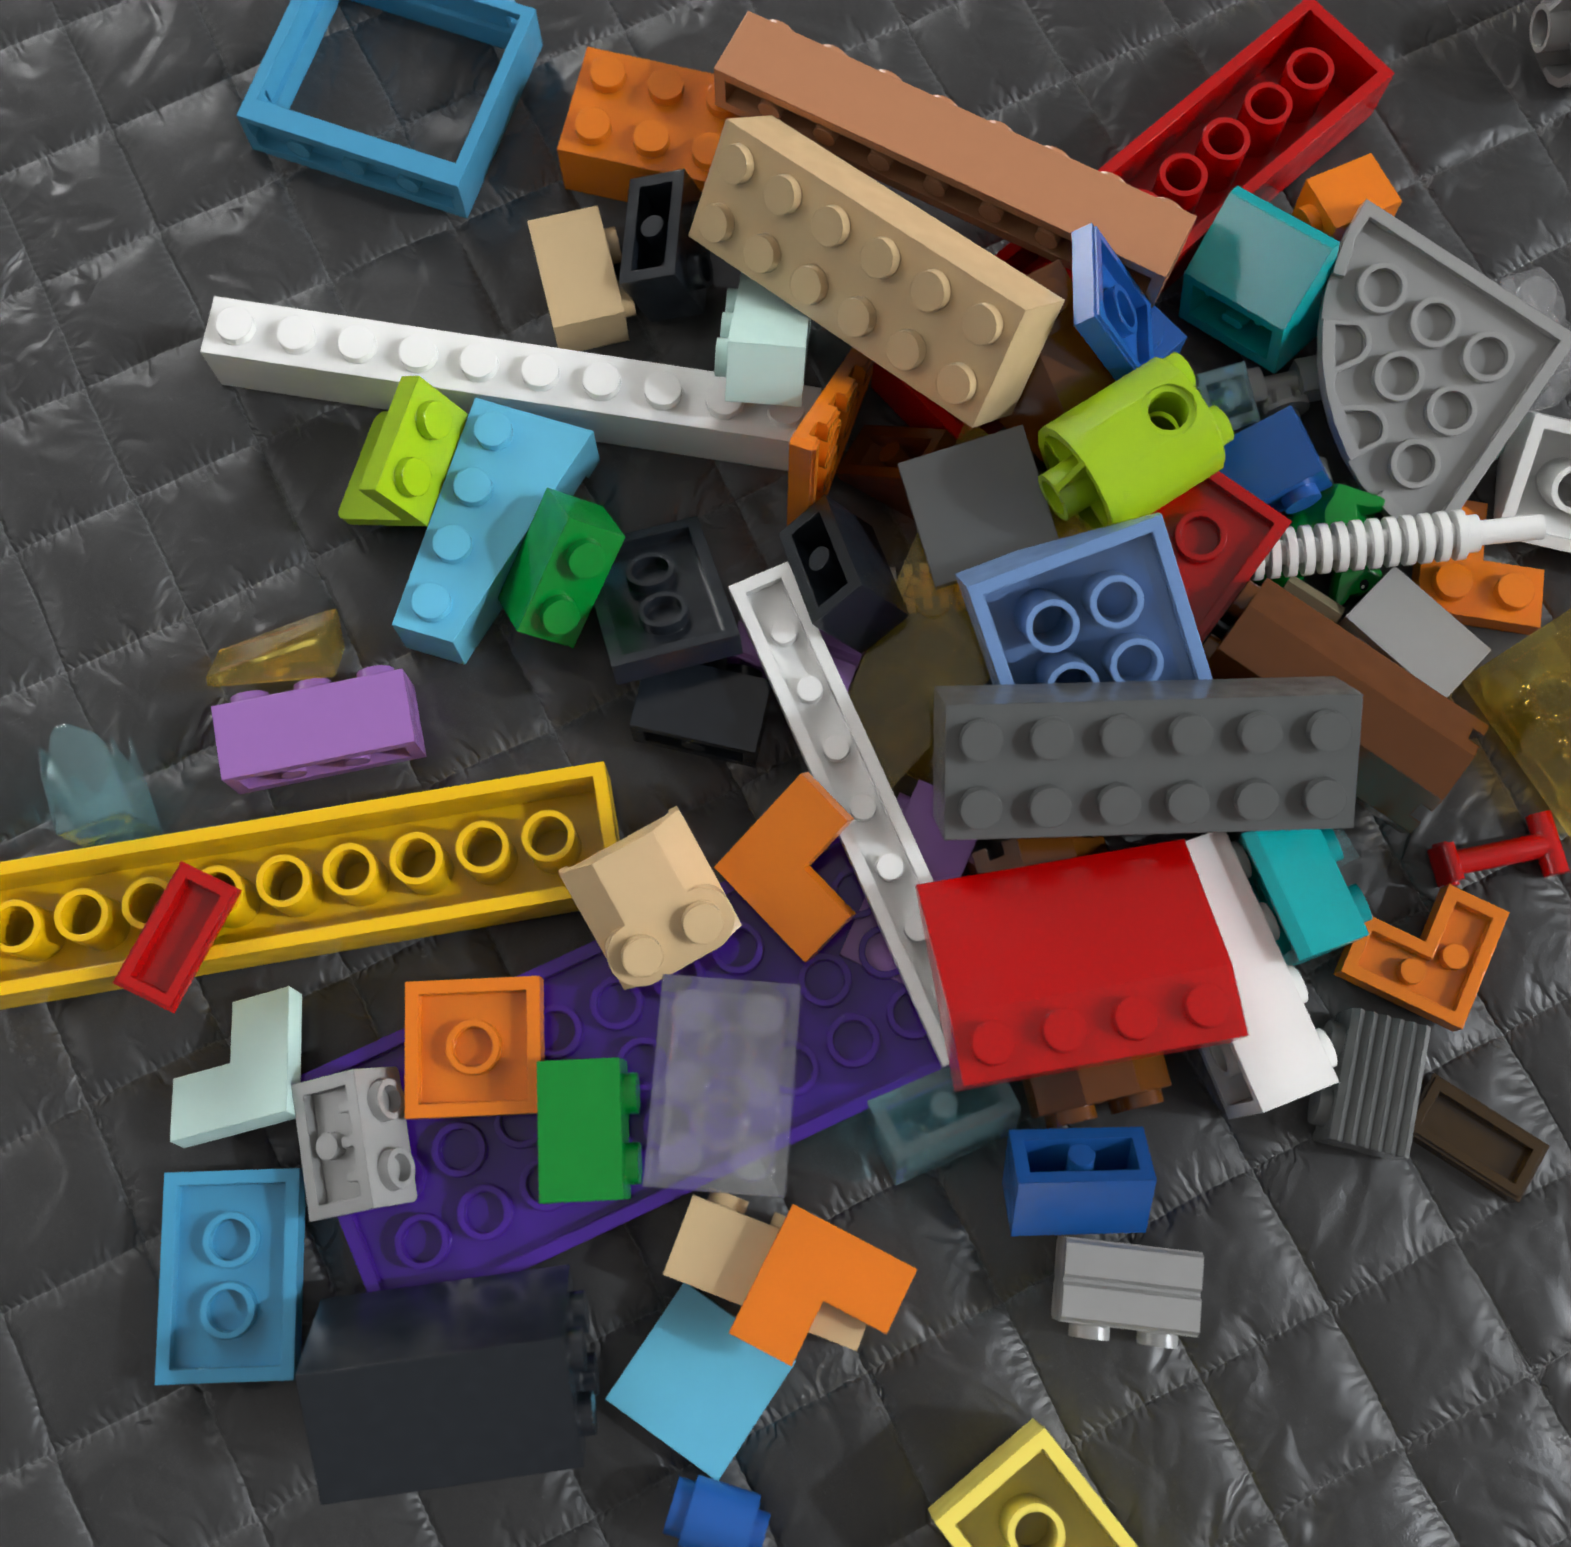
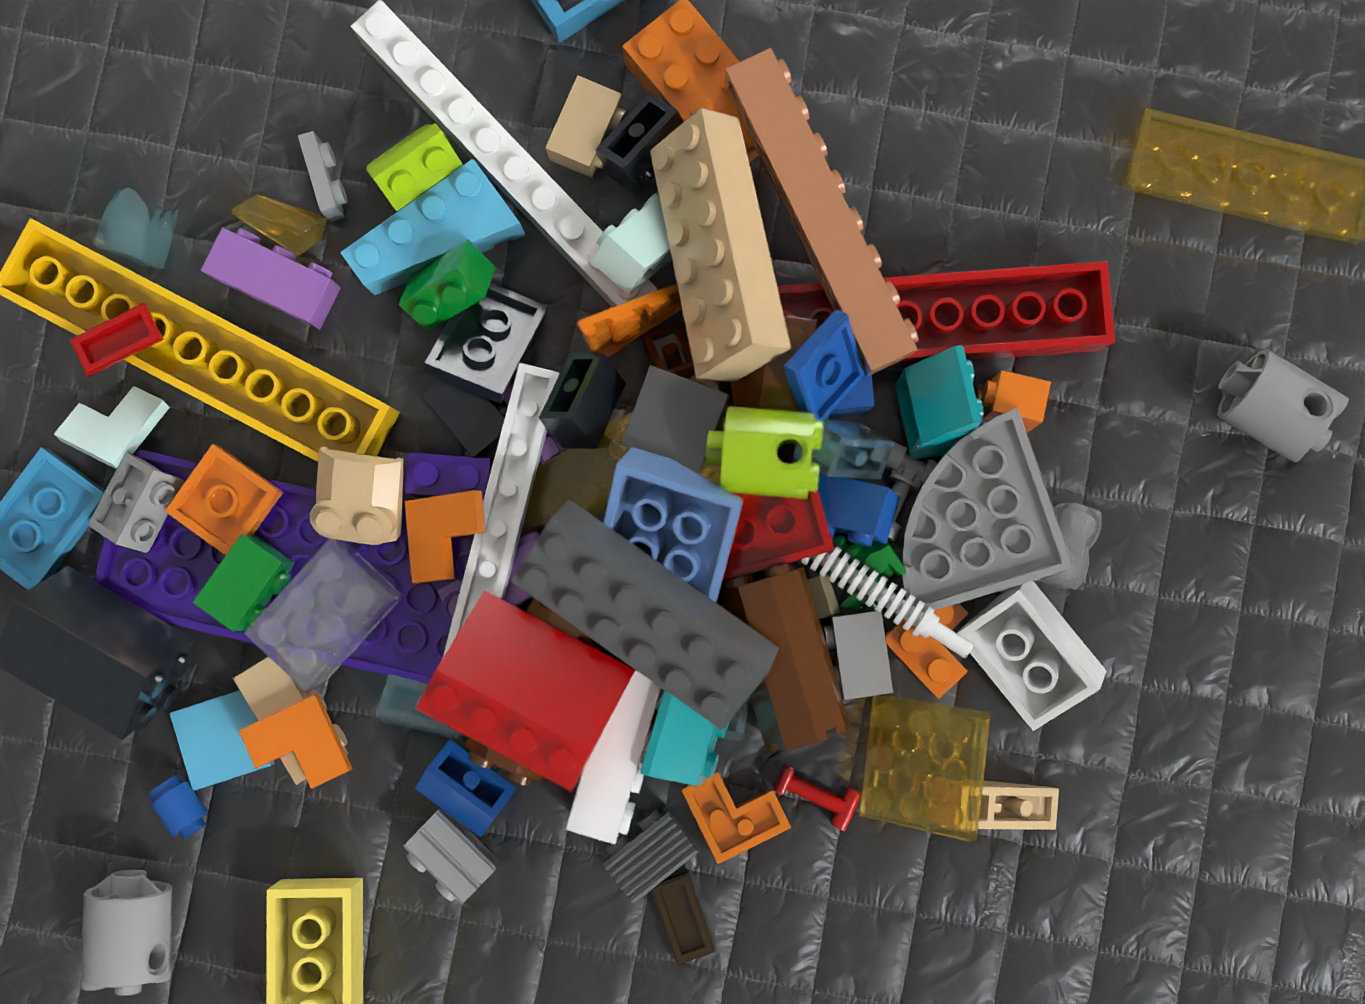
camera: 45 degrees right, 10 degrees up
(275, 547) = (319, 161): none -> light grey plate
(737, 797) = (444, 474): none -> dark purple brick

